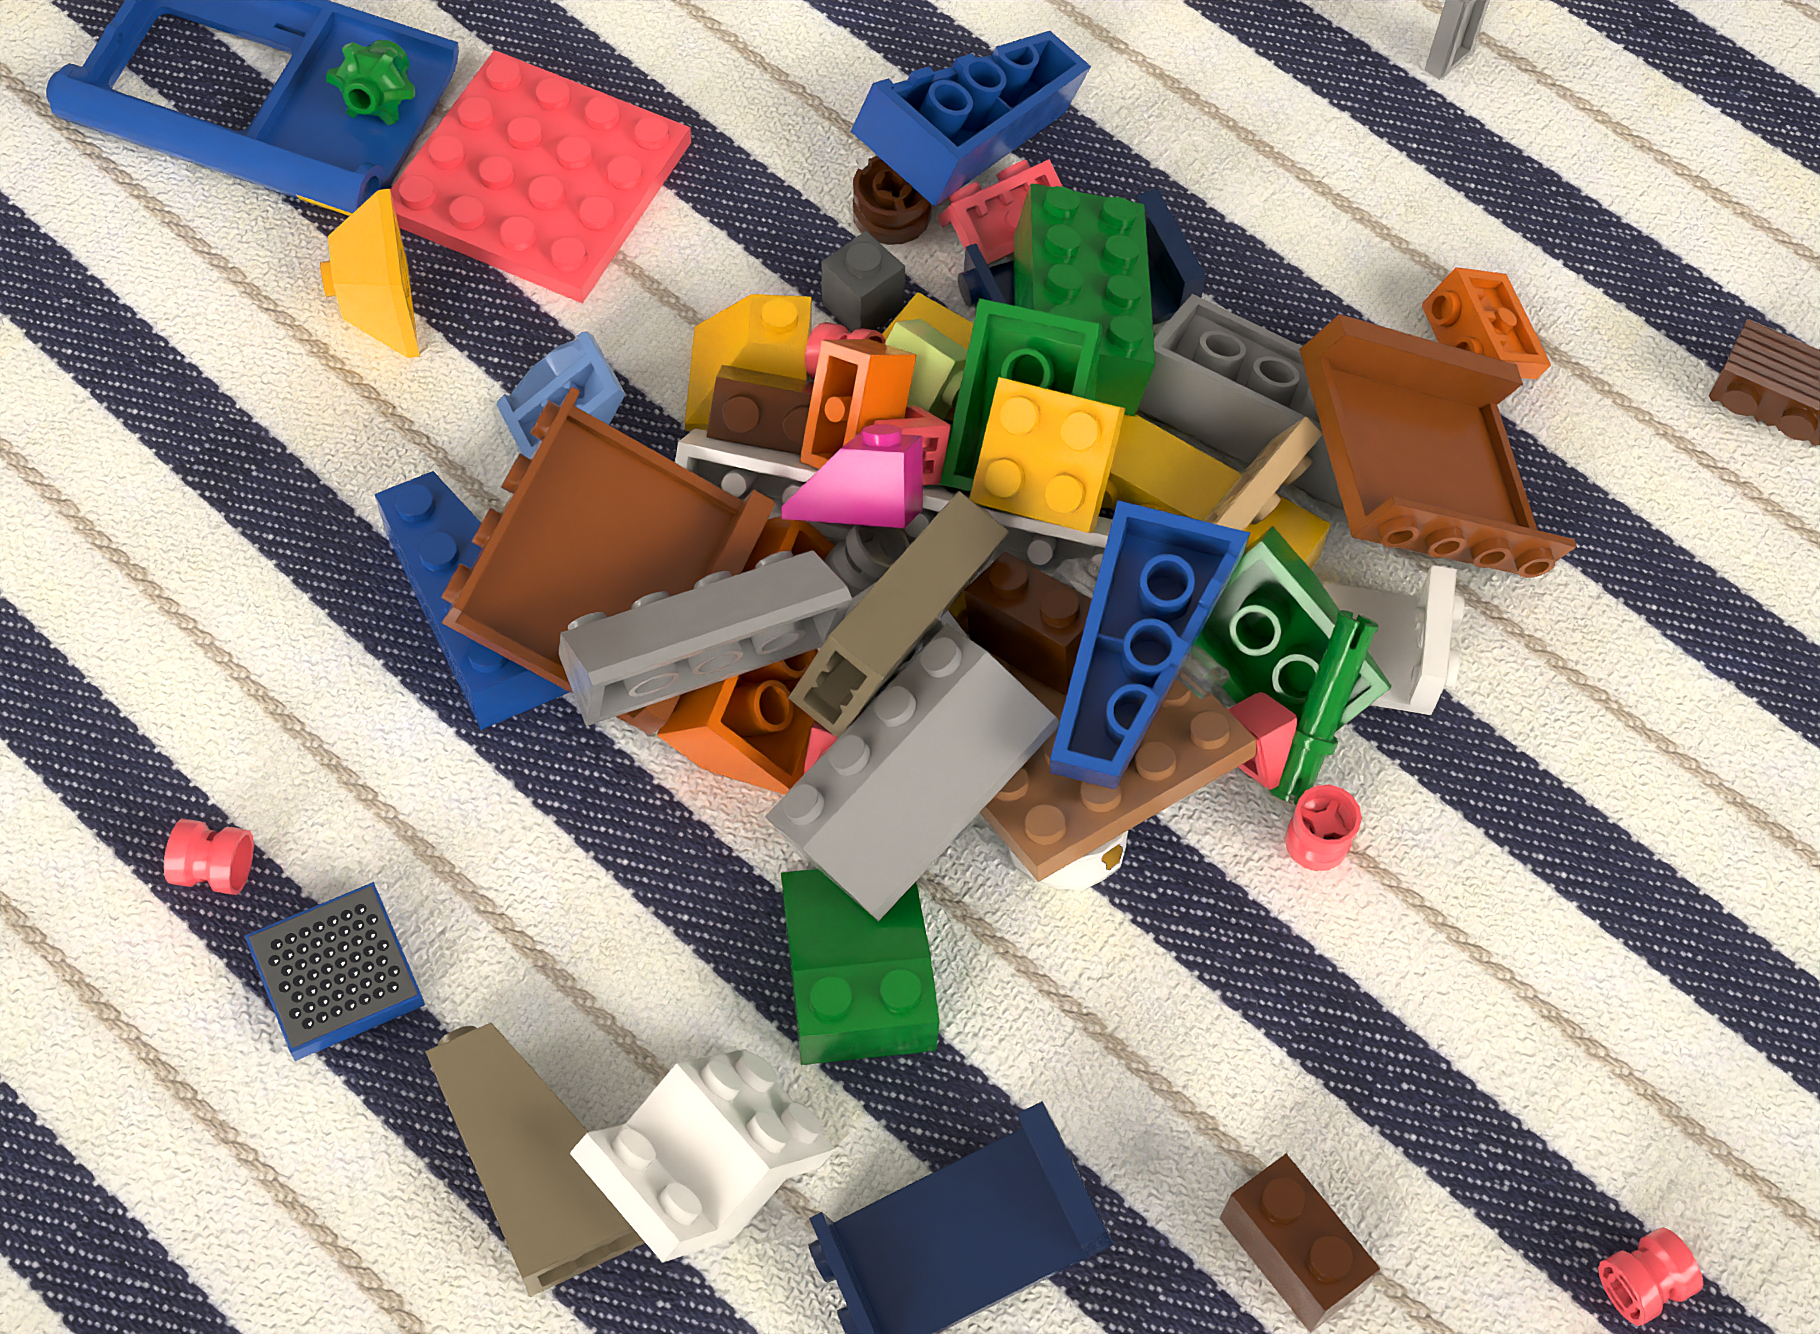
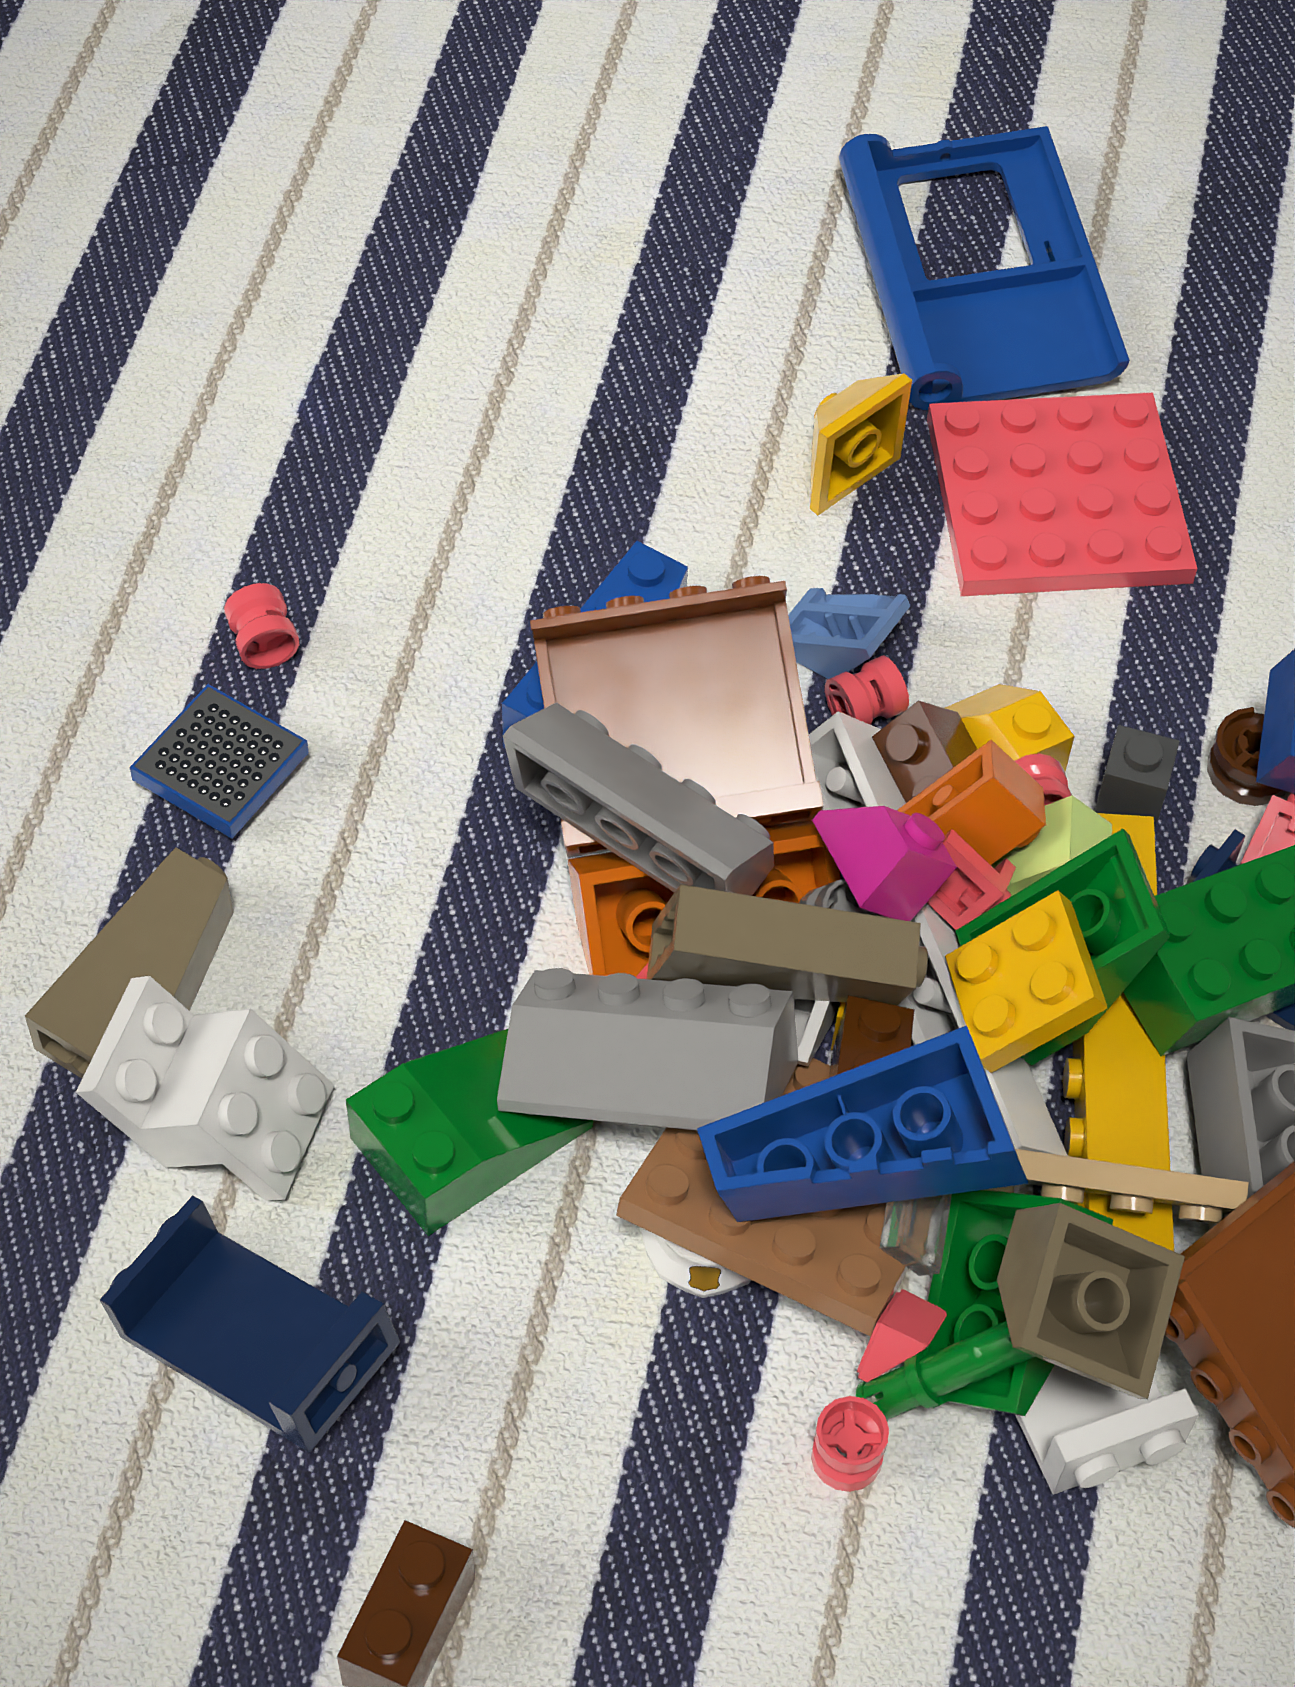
camera: 60 degrees right, 5 degrees down
(373, 79) = (1036, 324): green rock -> none
(647, 415) = (869, 693): none -> coral wheel
(1363, 571) = (1087, 1295): none -> dark tan slope

